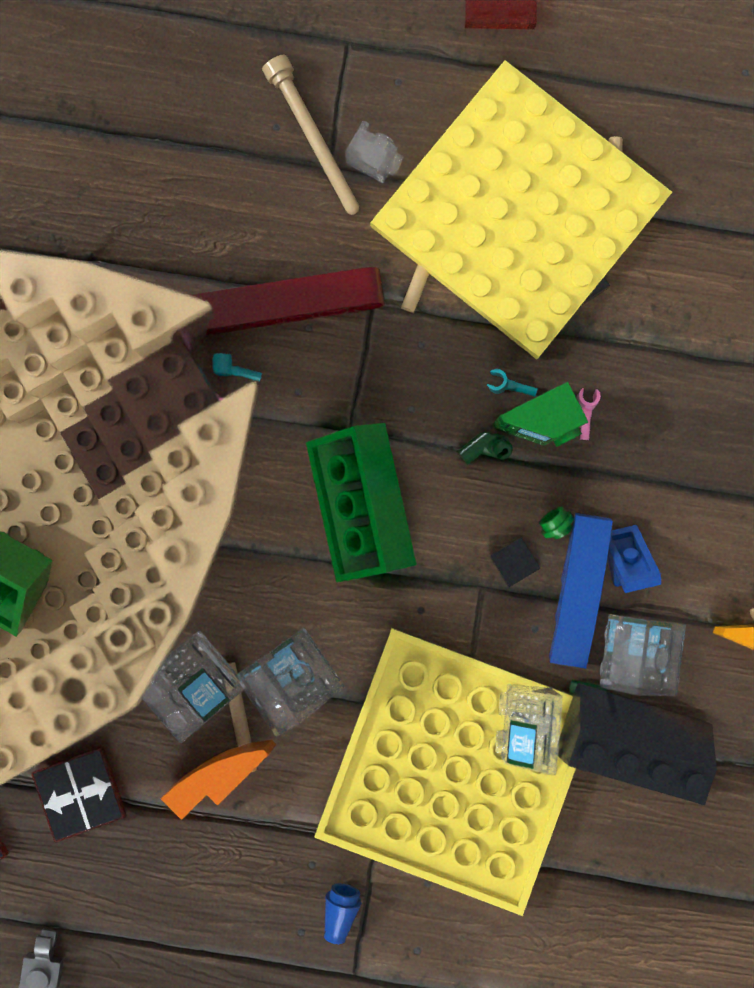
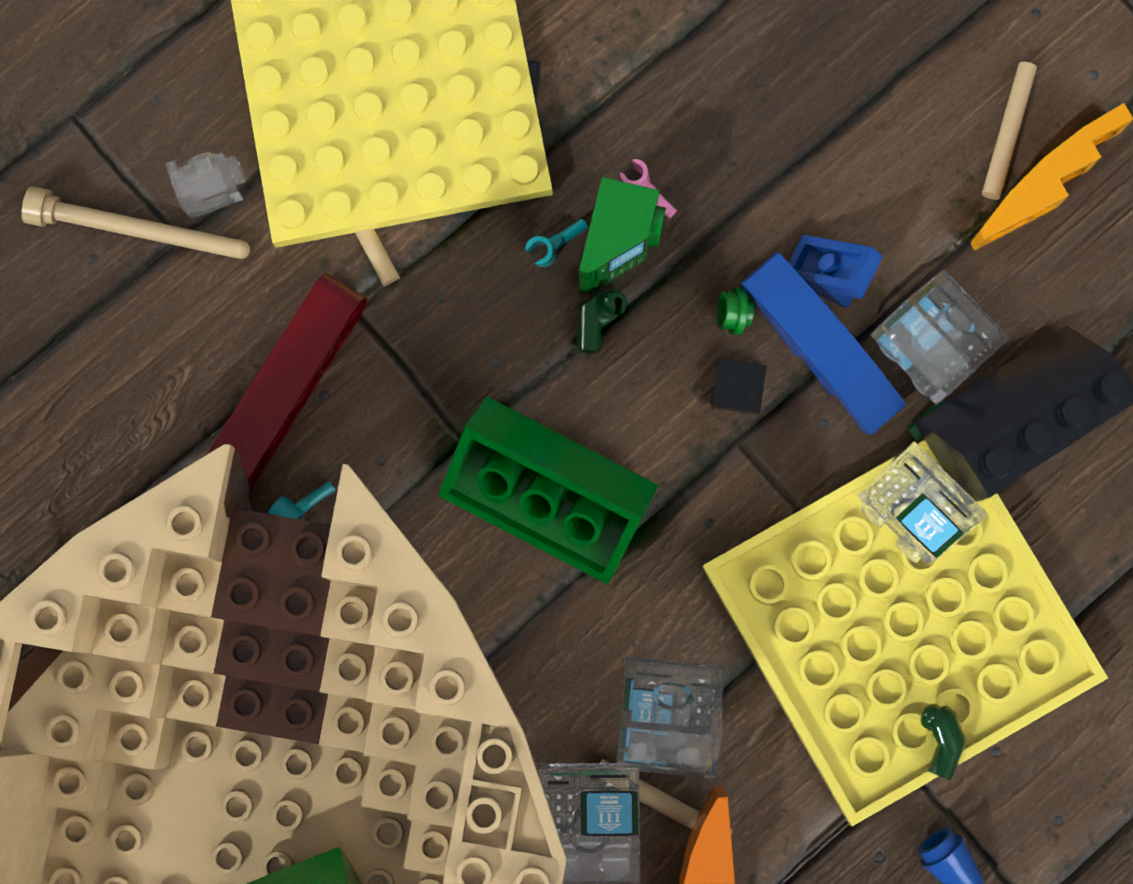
camera: 40 degrees left, 5 degrees down
(409, 853) = (949, 737): none -> dark green arm

